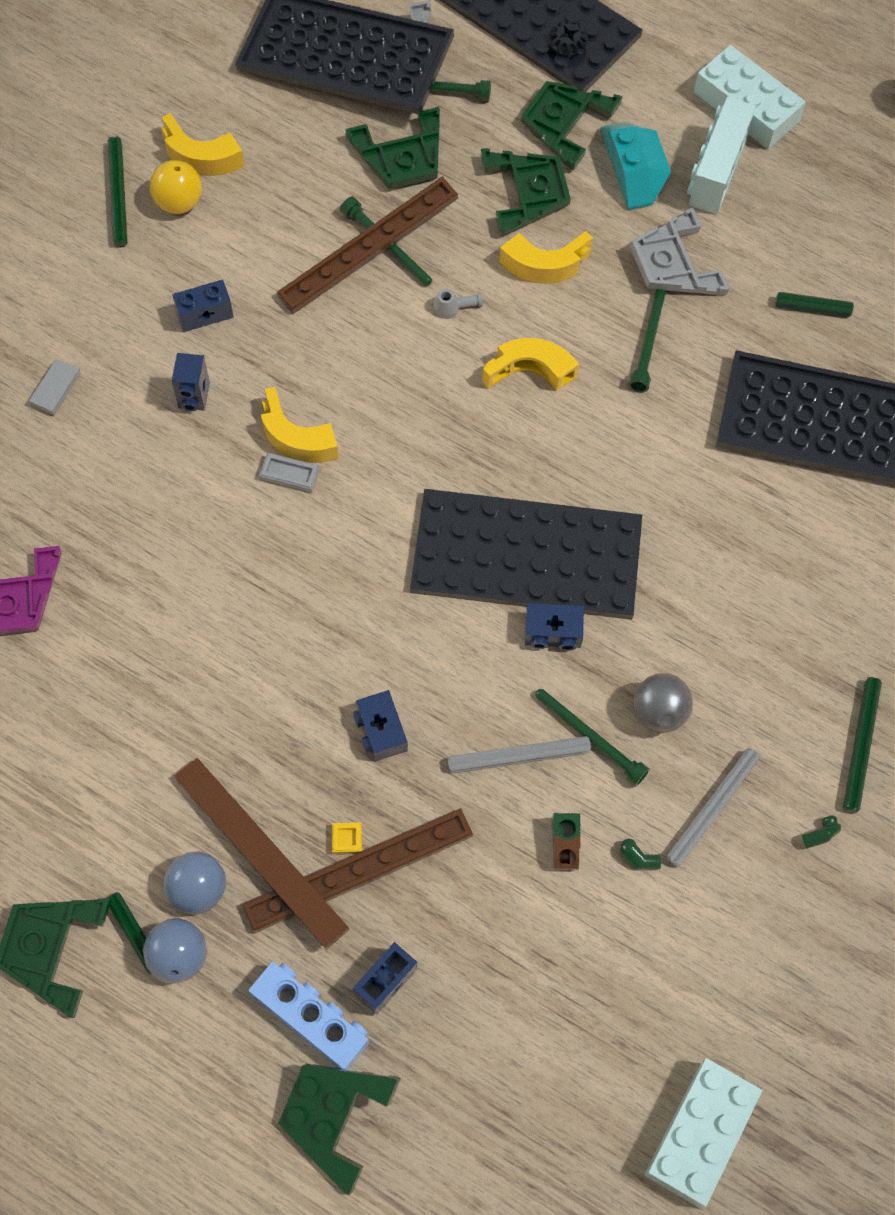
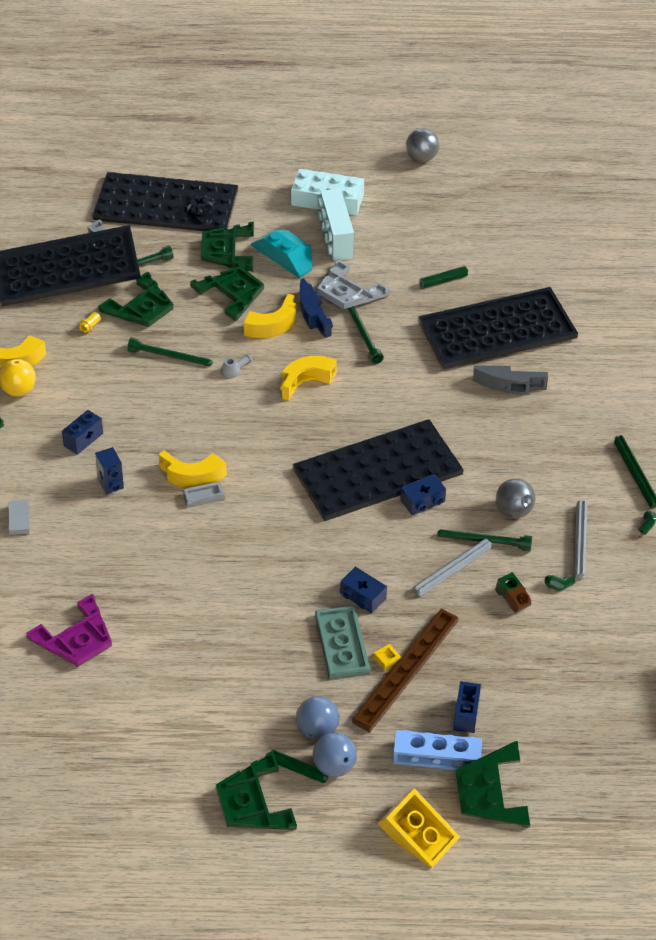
camera: 30 degrees left, 20 degrees down
(208, 1115) = (418, 828): none -> yellow slope
(262, 854) = (343, 686): reddish brown tile -> none
(308, 784) = (342, 642): none -> sand green tile
(321, 147) = (87, 324): none -> yellow pin
(367, 245) = (159, 359): reddish brown tile -> none
(607, 265) = (311, 309): none -> dark blue slope
(780, 506) = (508, 381): none -> dark grey slope

